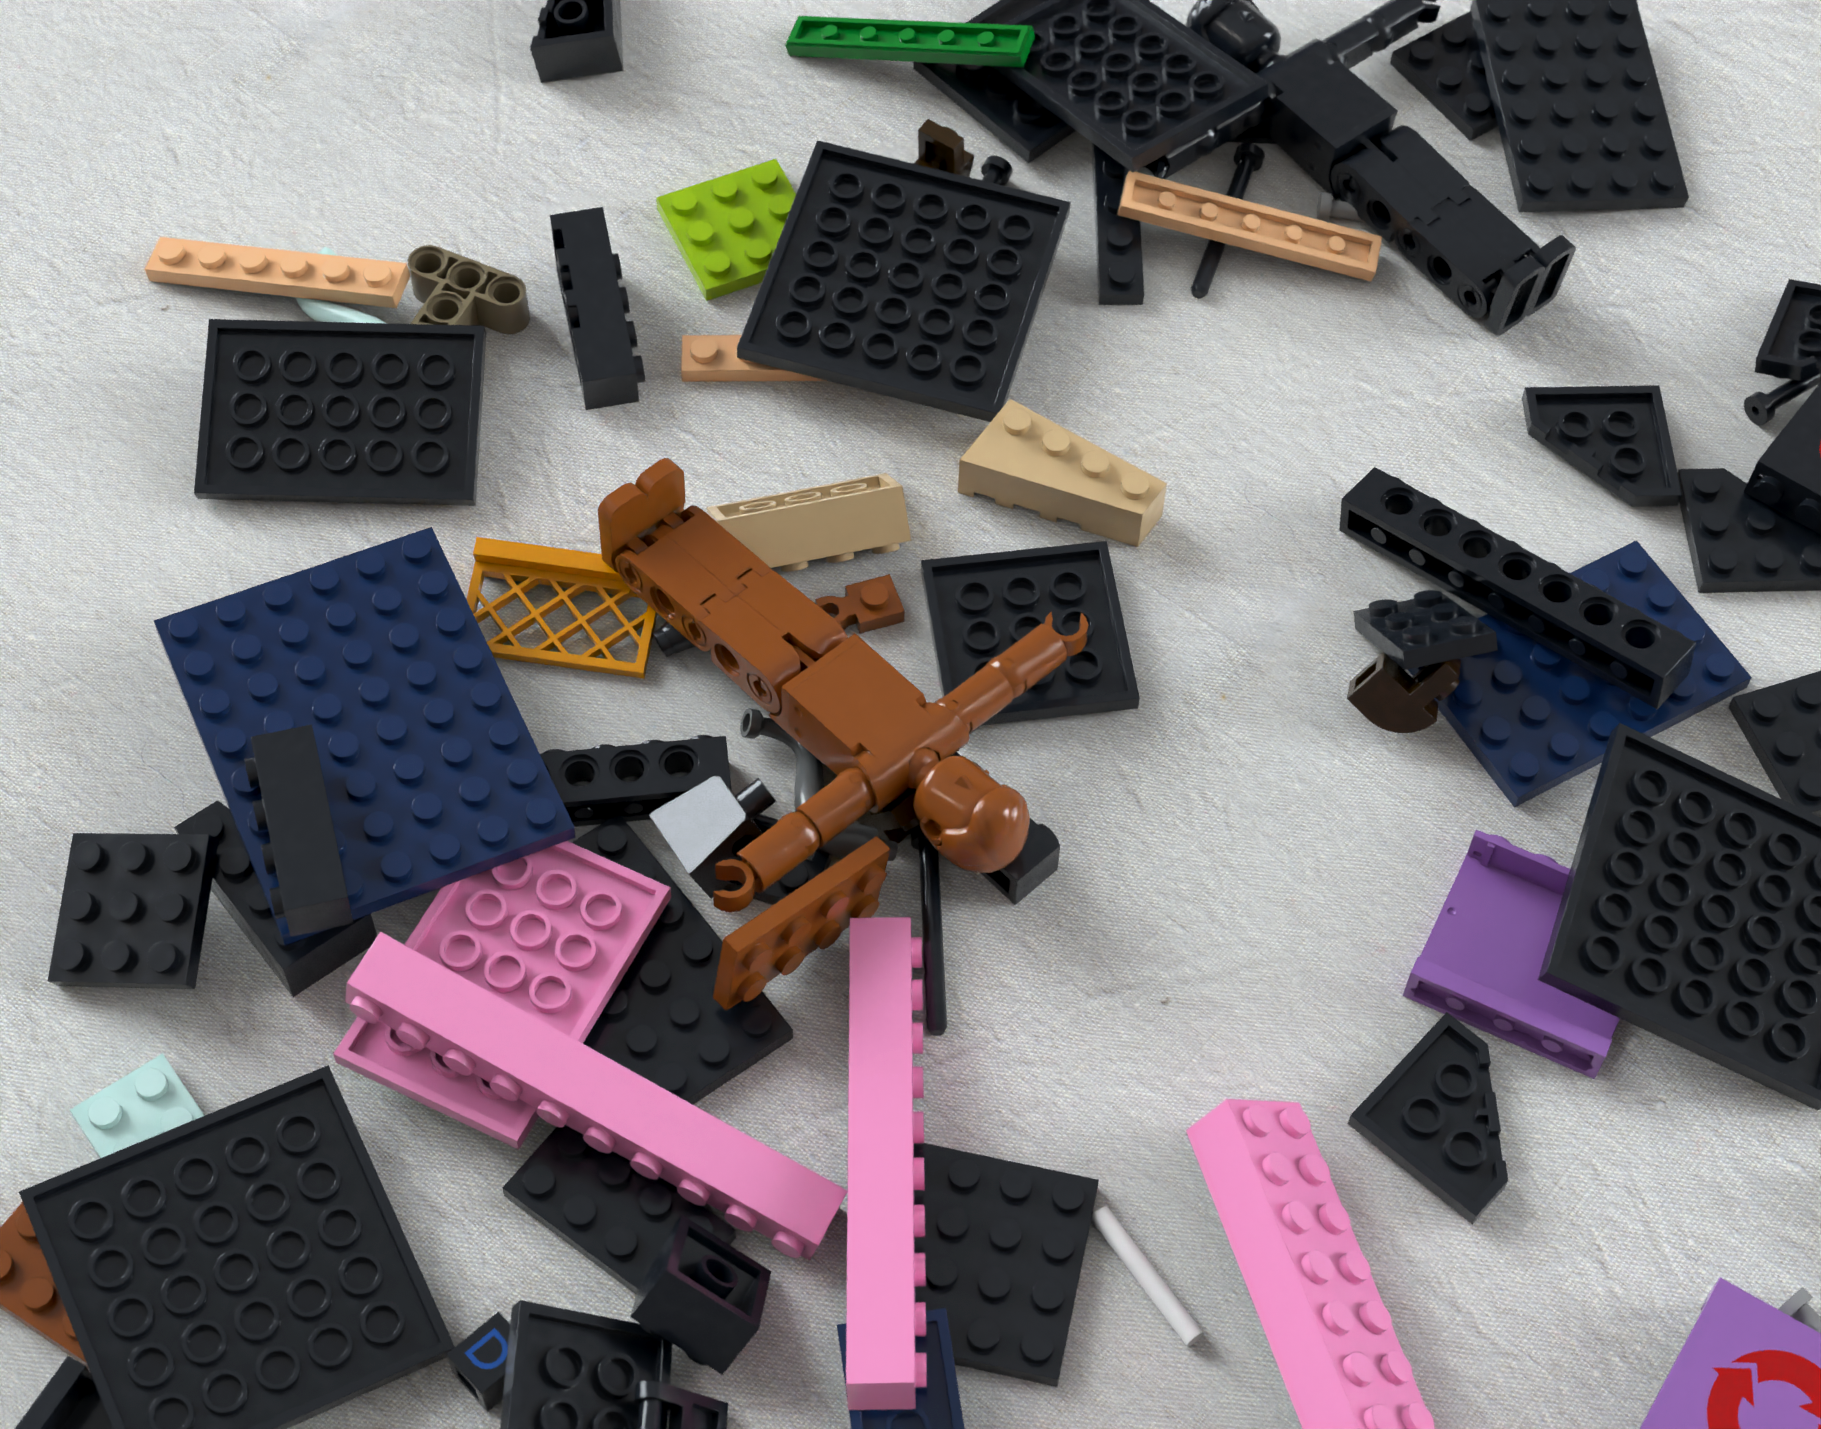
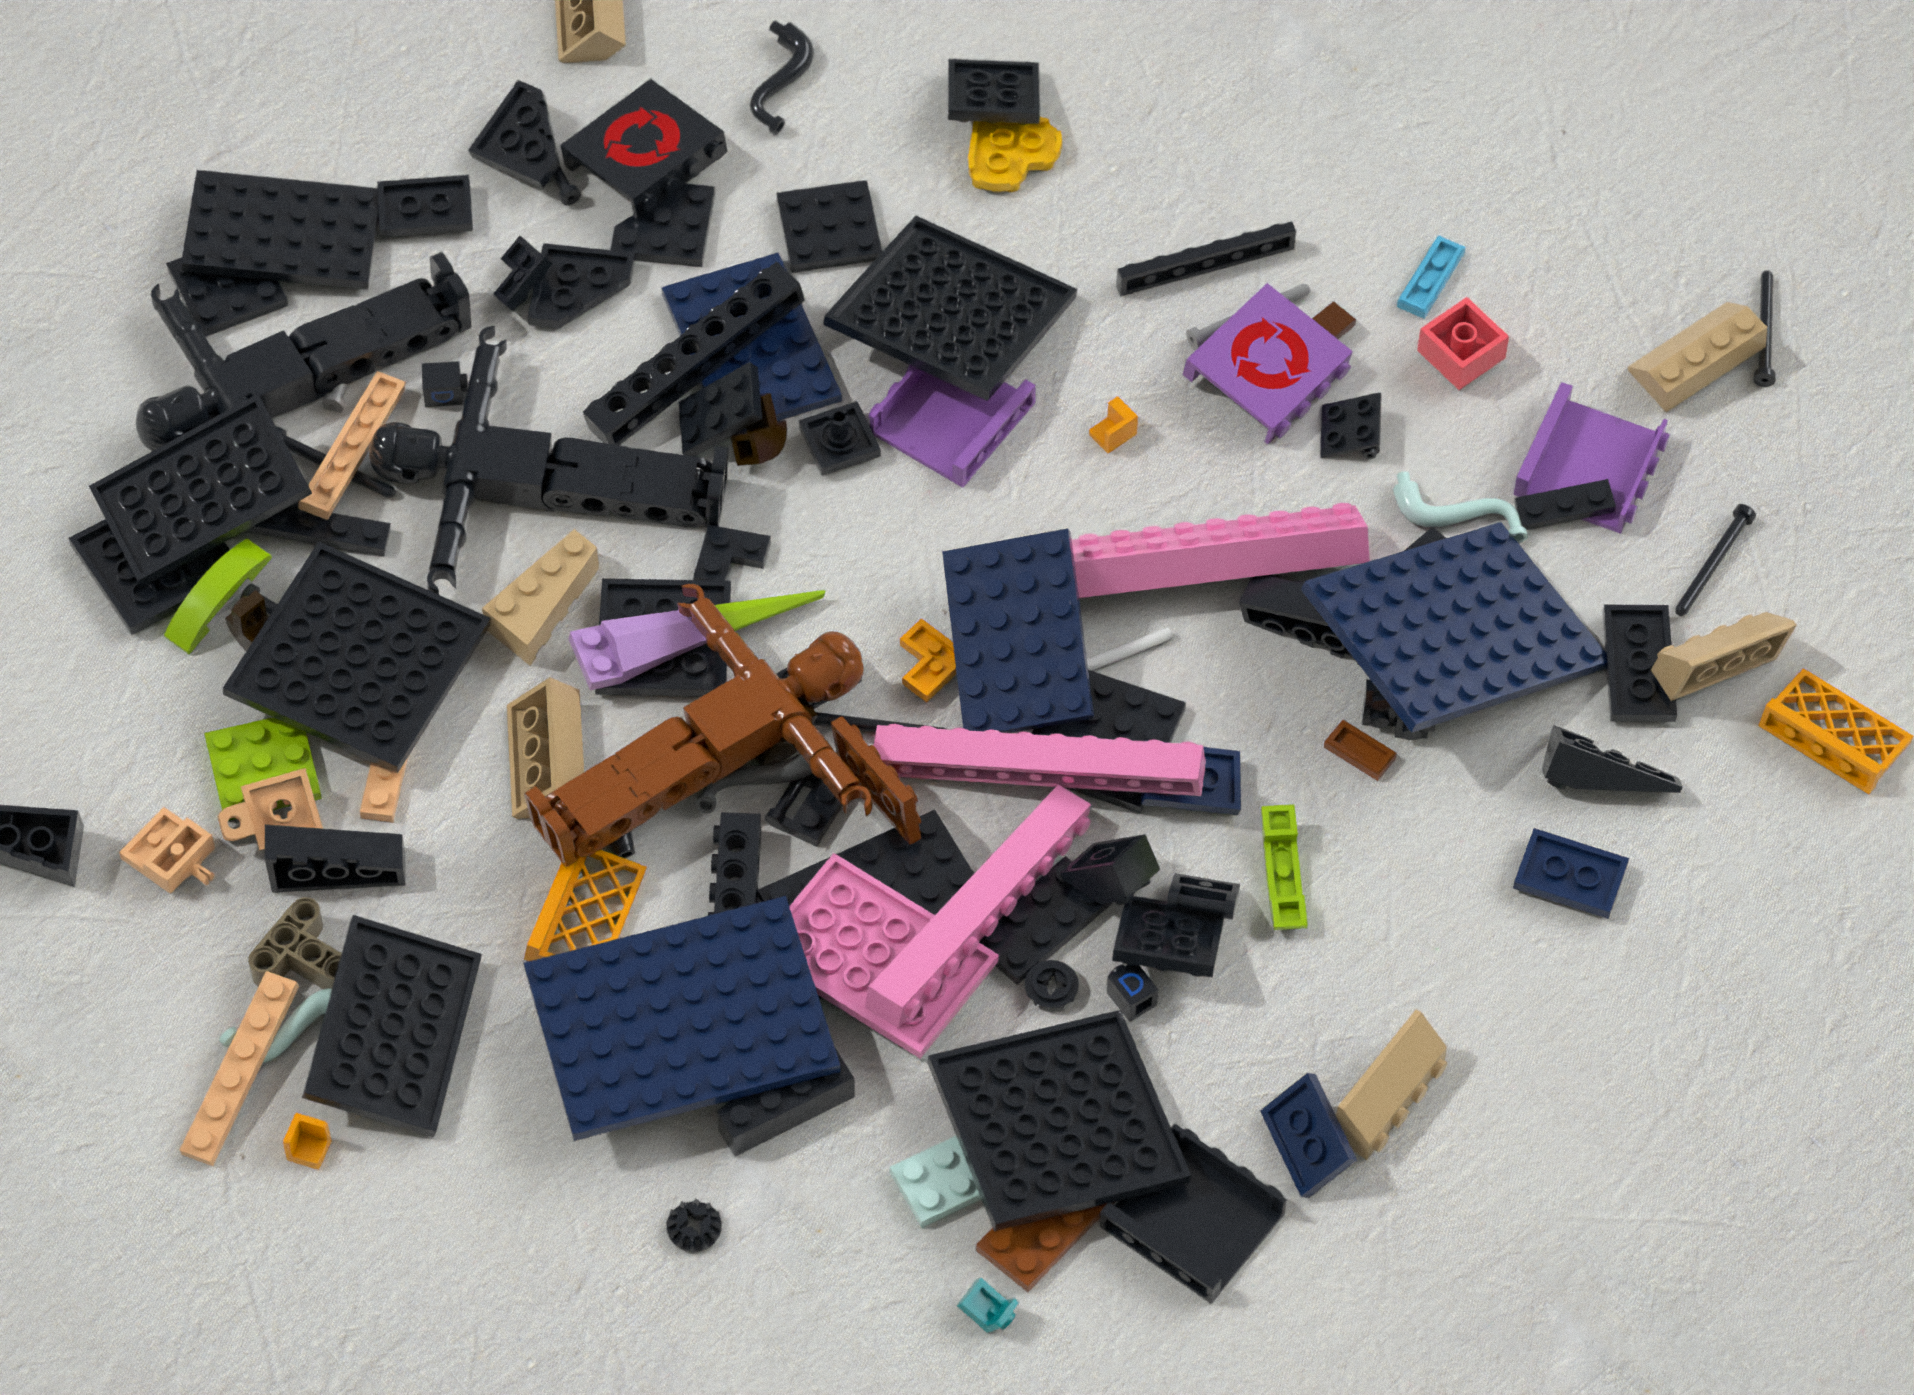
camera: 80 degrees left, 0 degrees up
(53, 834) = (688, 1238): none -> black gear
(133, 910) = (788, 1170): black plate -> none
(176, 358) = (307, 1141): none -> light orange panel
(300, 831) = (774, 1037): black brick -> none
(481, 1227) = (1042, 974): none -> black gear
(591, 153) = (170, 851): none -> light nougat plate
(647, 224) = (262, 798): none -> light nougat plate
(712, 826) = (791, 827): torso -> none
(867, 604) = (616, 728): dark orange plate -> none
(911, 41) = (121, 625): green tile -> none
(993, 123) = (212, 593): none -> lime slope
(997, 593) = (638, 643): none -> lavender plate
(1062, 1000) = (935, 656): none -> light orange plate
(1105, 1086) = (1018, 633): none -> dark blue plate
(1200, 686) = (728, 546): none -> black plate
(1265, 438) = (526, 471): none -> black piece
(1384, 312) = (443, 384): none -> black brick
(1436, 806) = (839, 438): none -> black plate
(1441, 1118) = (1052, 481): black plate -> none
(1572, 1200) = (1117, 427): none -> light orange panel
(1601, 370) = (527, 269): none -> black plate
(1677, 249) = (424, 206): none -> black plate

